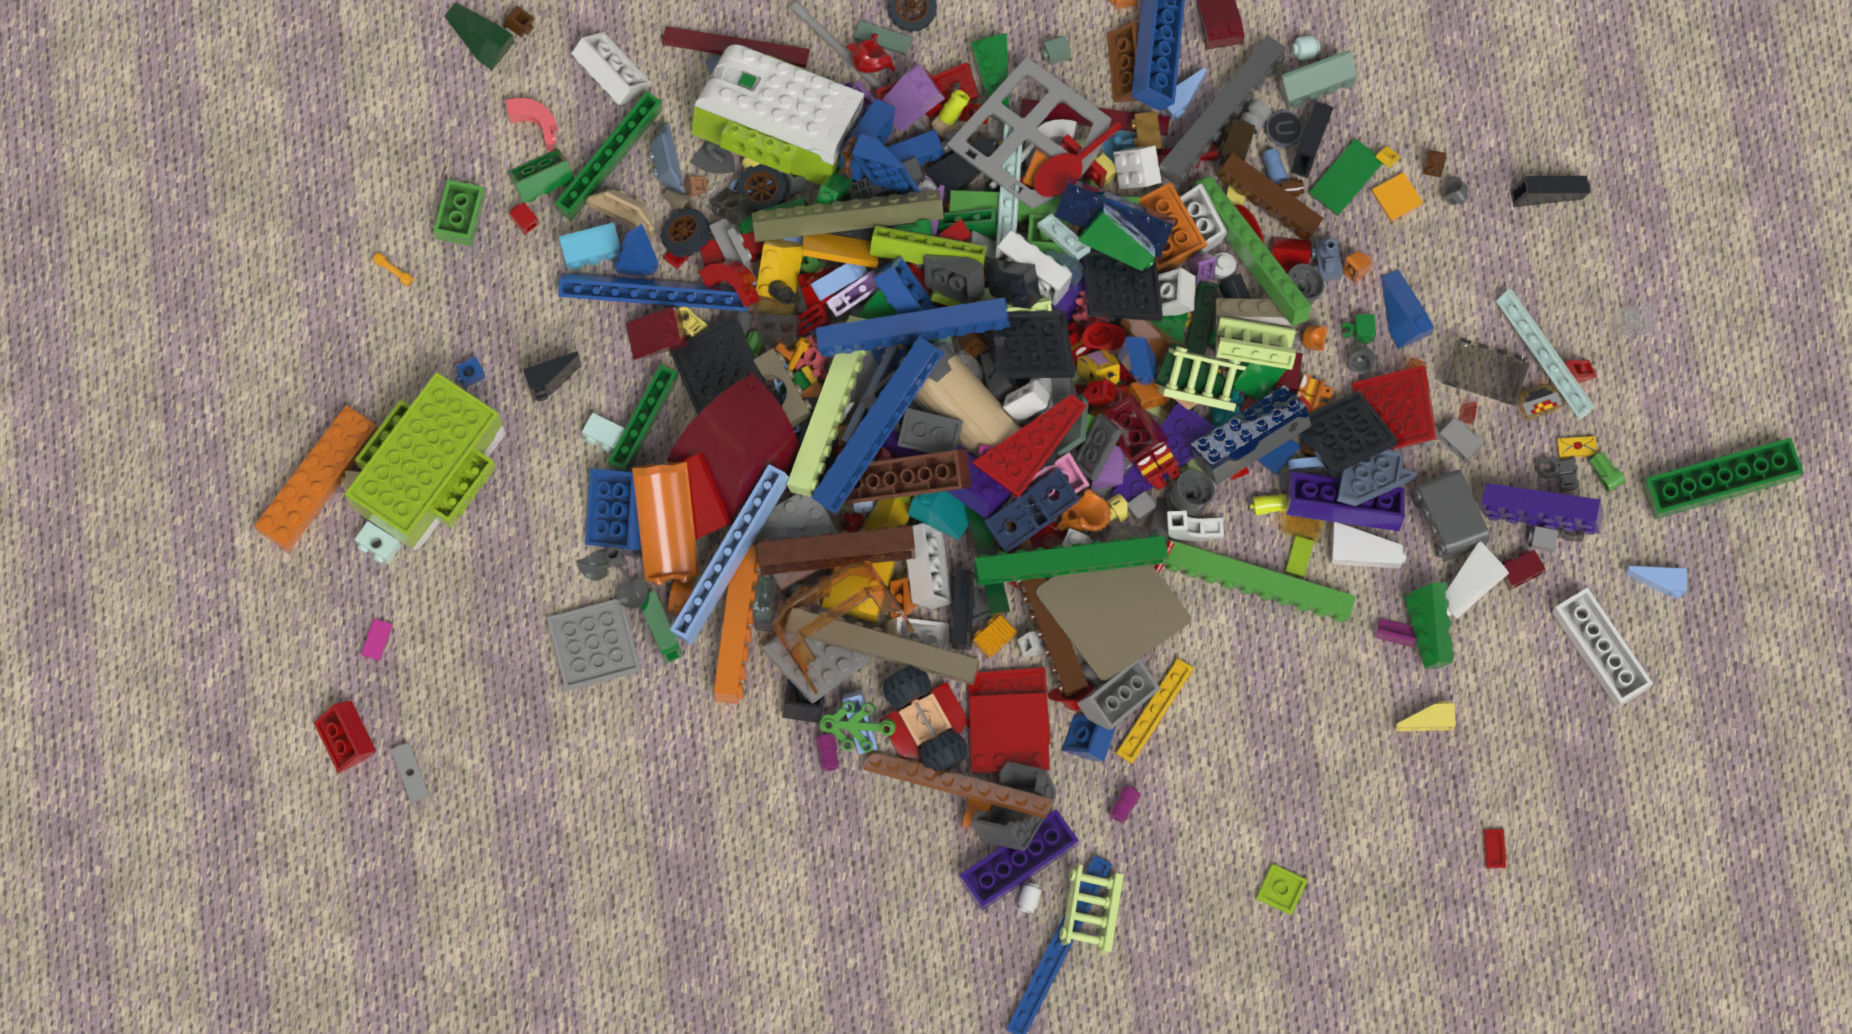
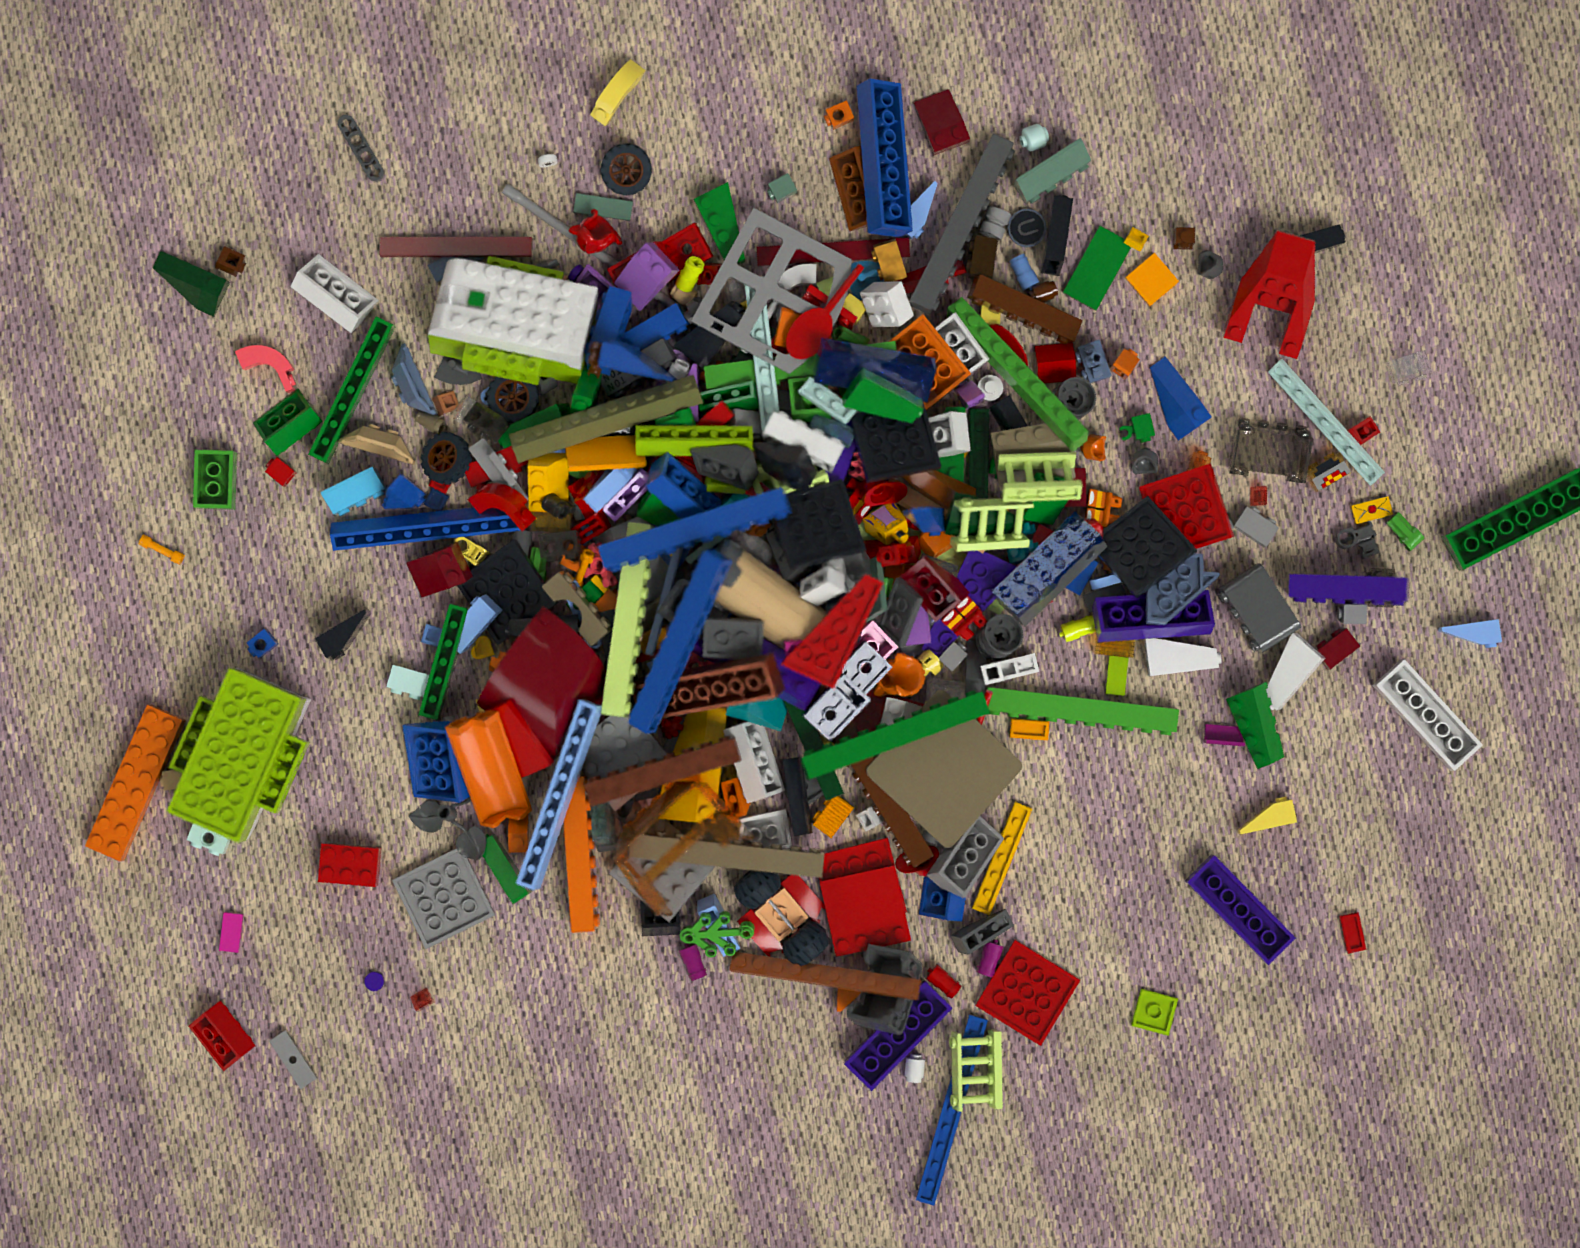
camera: 10 degrees left, 15 degrees up
(507, 713) = (374, 981): none -> dark purple tile
(508, 594) = (349, 864): none -> red brick
(551, 740) = (422, 1000): none -> clear red slope
(634, 395) = (431, 635): none -> medium blue tile
(667, 272) = (436, 500): none -> dark blue tile
(682, 417) = (482, 648): none -> yellow tile
(683, 387) = (477, 620): none -> light blue slope
(1072, 815) = (943, 981): none -> red piece
(1122, 775) = (981, 932): none -> dark grey slope
(1156, 846) = (1027, 992): none -> red plate
(1204, 592) = (1029, 729): none -> light orange tile
(1384, 801) = (1240, 909): none -> dark purple brick
(1522, 213) = (1281, 281): none -> red wedge

